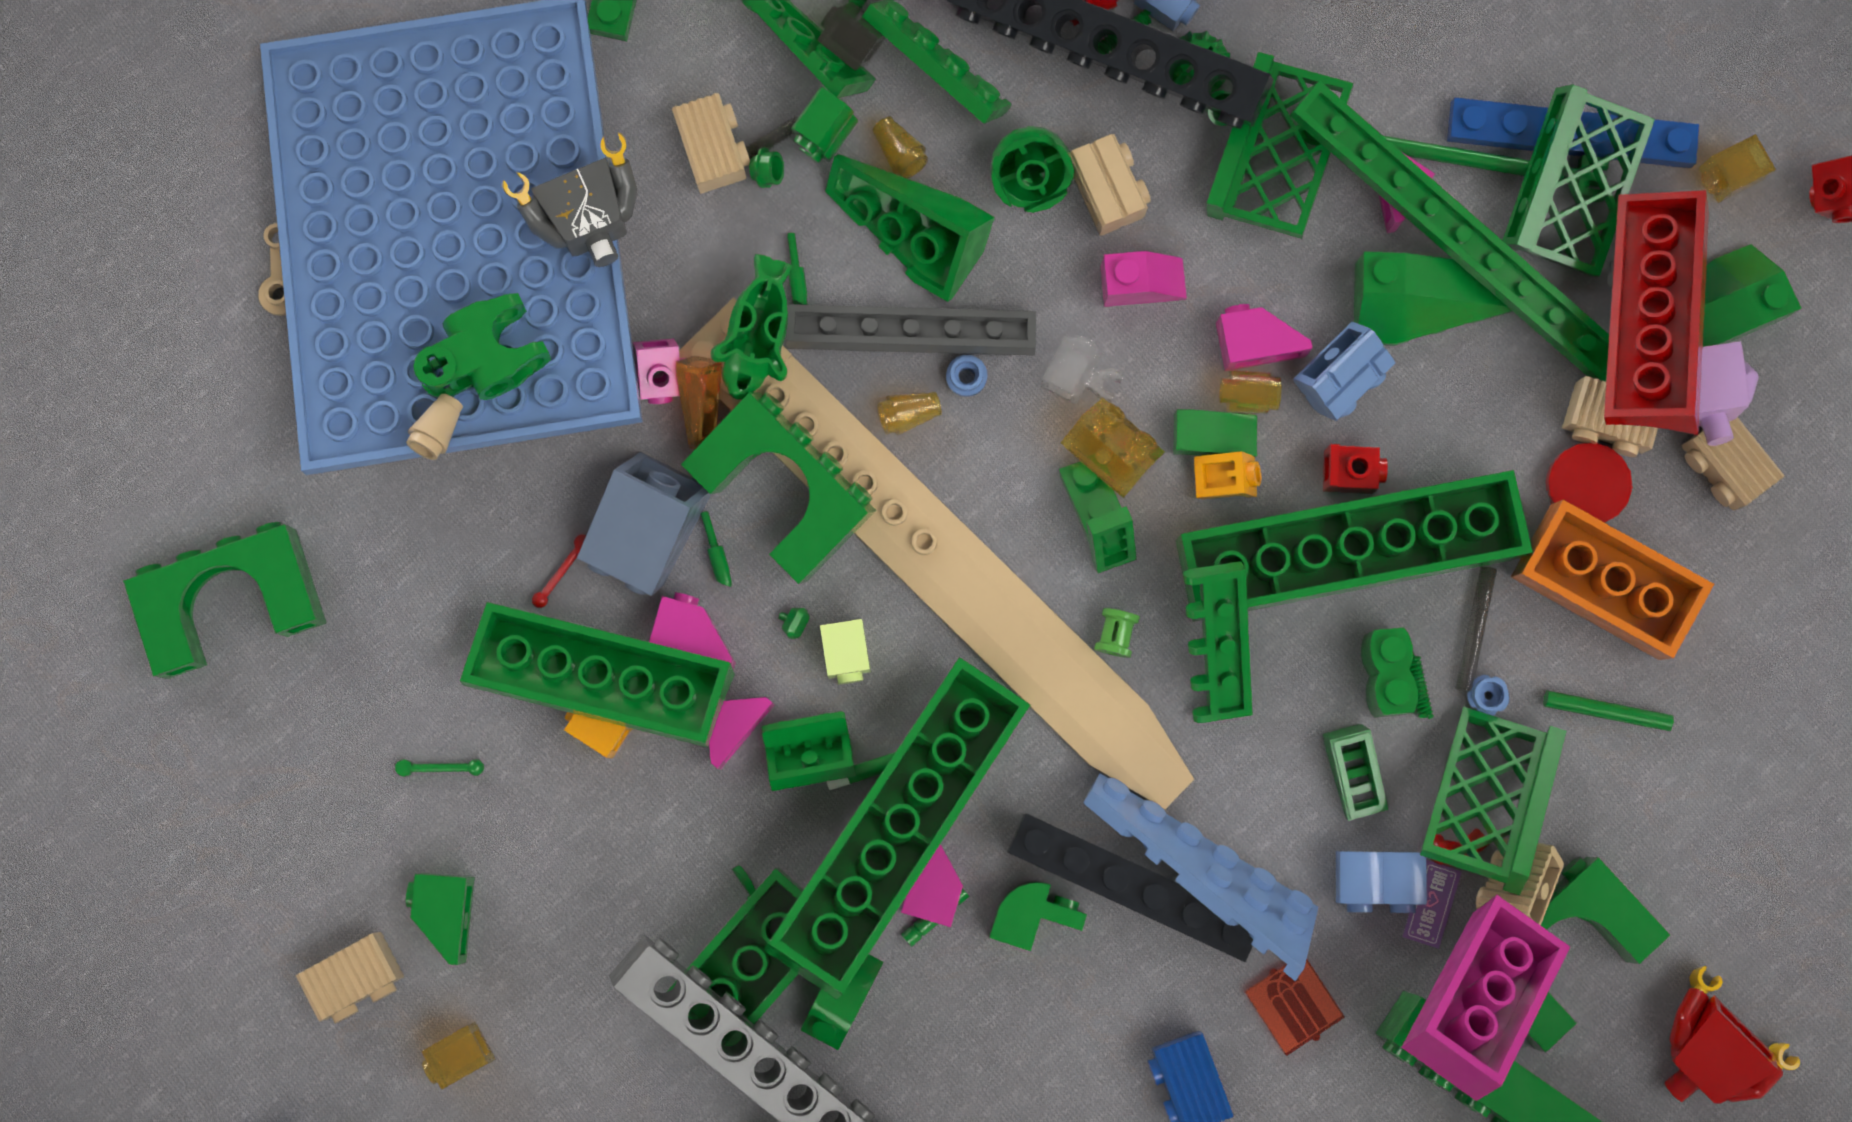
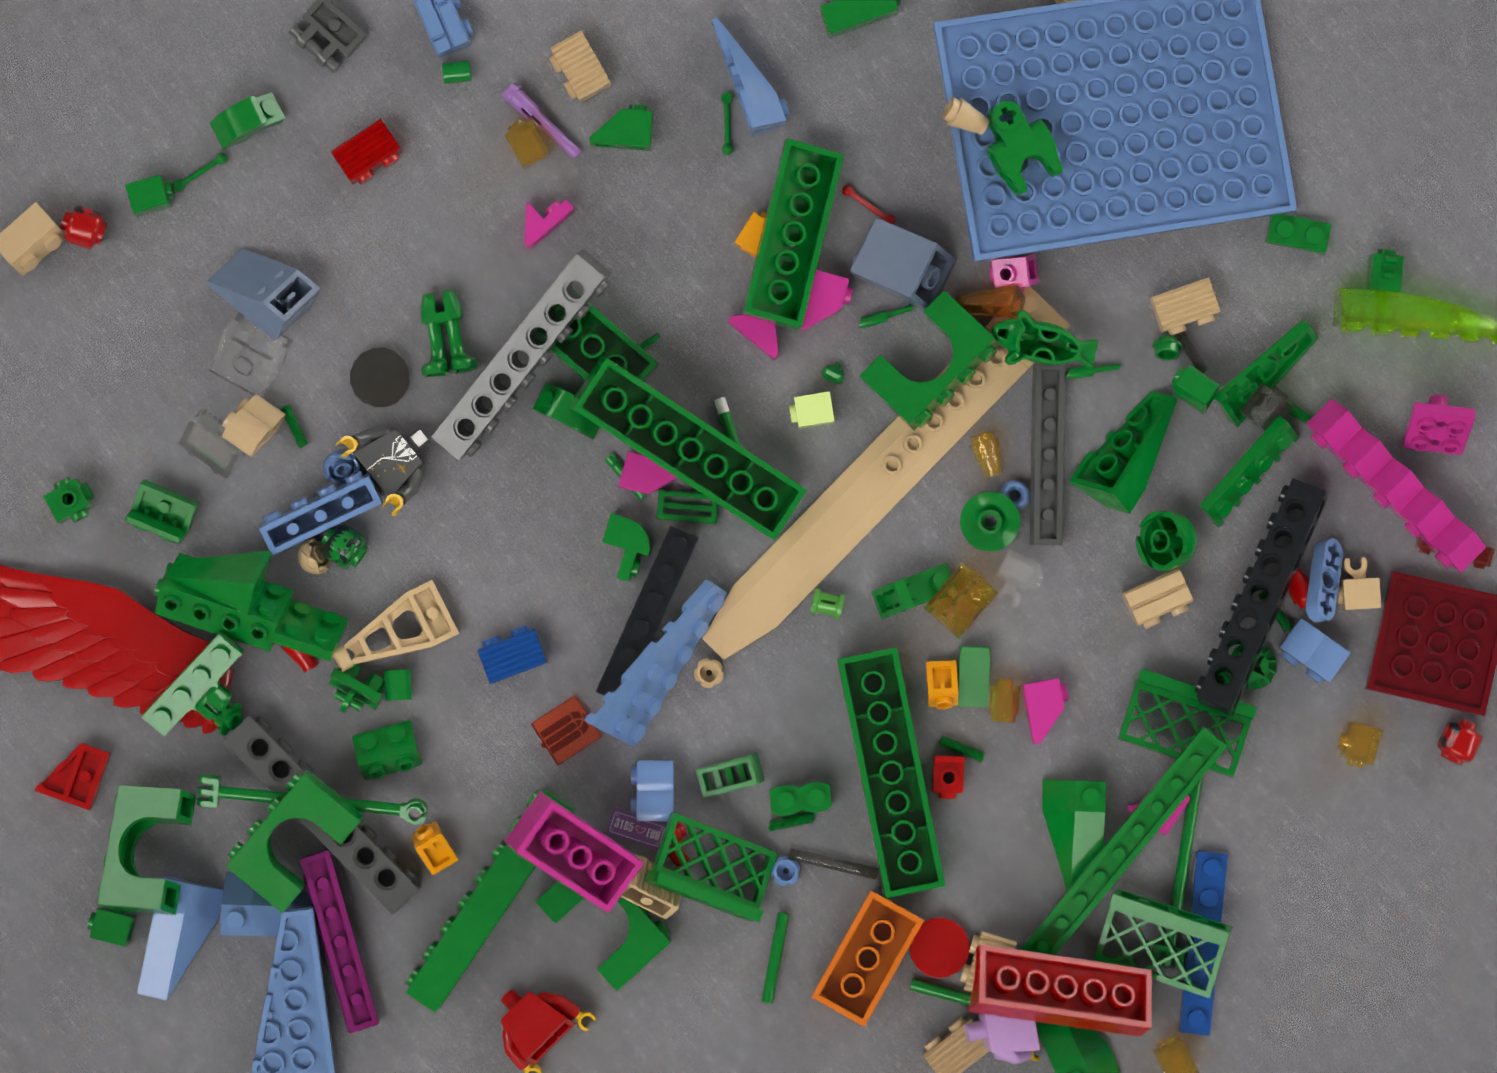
camera: 90 degrees right, 5 degrees up
(397, 727) = (756, 95): none -> medium blue wedge
(408, 1051) = (530, 110): none -> medium lavender pin
(580, 1038) = (538, 228): none -> dark pink slope
(582, 207) = (1128, 215): dark grey torso -> none
(808, 751) = (740, 384): green bracket -> none
(901, 149) = (1183, 445): clear yellow cone -> none
(975, 865) = (683, 518): none -> green tile
(1023, 404) = (974, 523): none -> green dish
(1141, 278) = (1087, 624): dark pink slope -> none
(1201, 803) = (700, 672): none -> tan plate
(1223, 641) = (819, 677): green hinge -> none
(1314, 451) = (961, 748): none -> green piece
(1344, 371) = (1018, 769): medium blue brick -> none
(1650, 479) = (940, 992): none -> green bar

